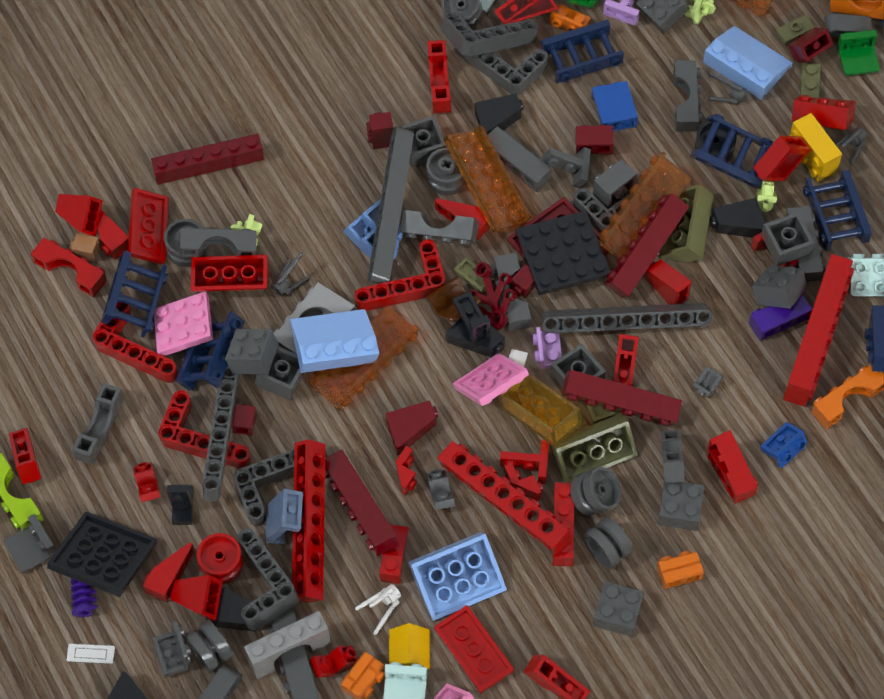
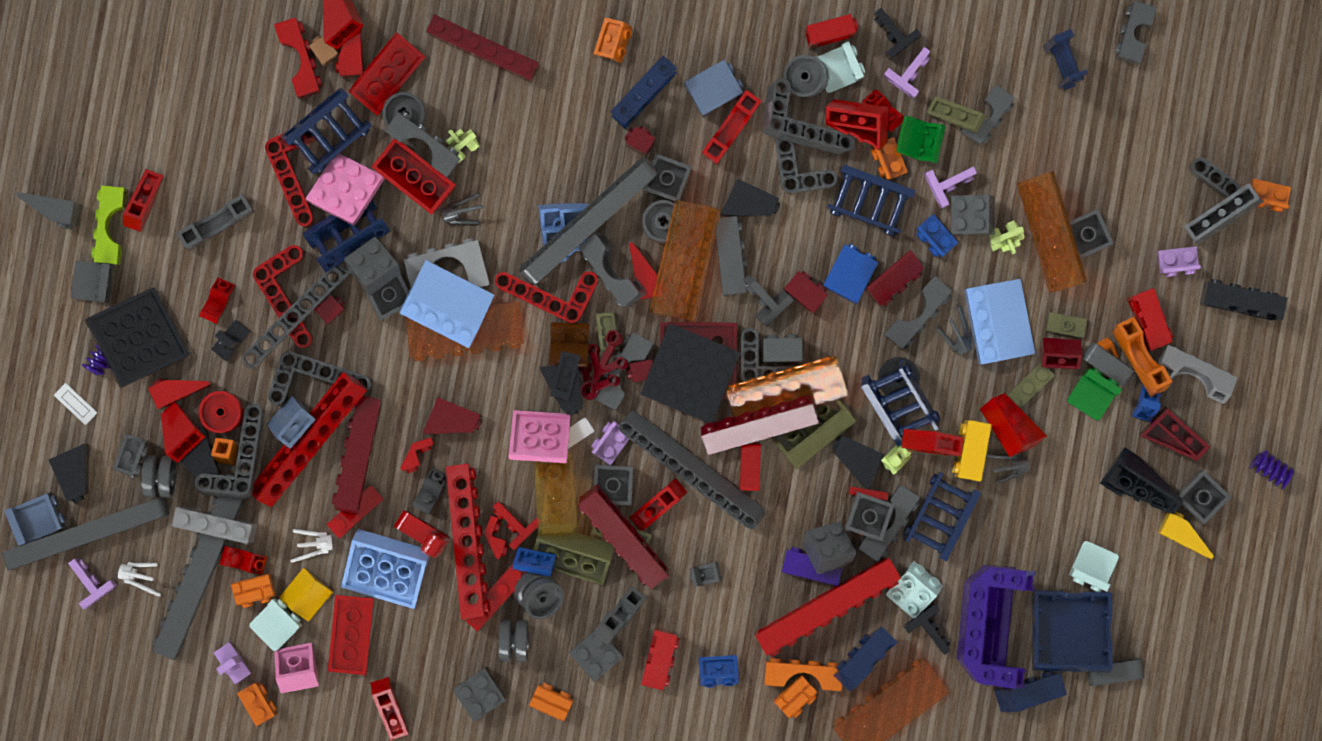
camera: 35 degrees right, 25 degrees up
(248, 585) = (225, 451): none -> orange brick
(300, 86) = (613, 40): none -> orange bracket
(354, 96) = (644, 92): none -> dark blue fence
(401, 64) = (714, 87): none -> sand blue panel
(470, 522) = (432, 539): none -> red beam
(570, 468) = (534, 561): none -> blue bracket
(648, 84) = (895, 279): none -> dark red slope
(650, 42) = (936, 236): none -> blue bracket
(859, 415) = (795, 697): none -> orange brick

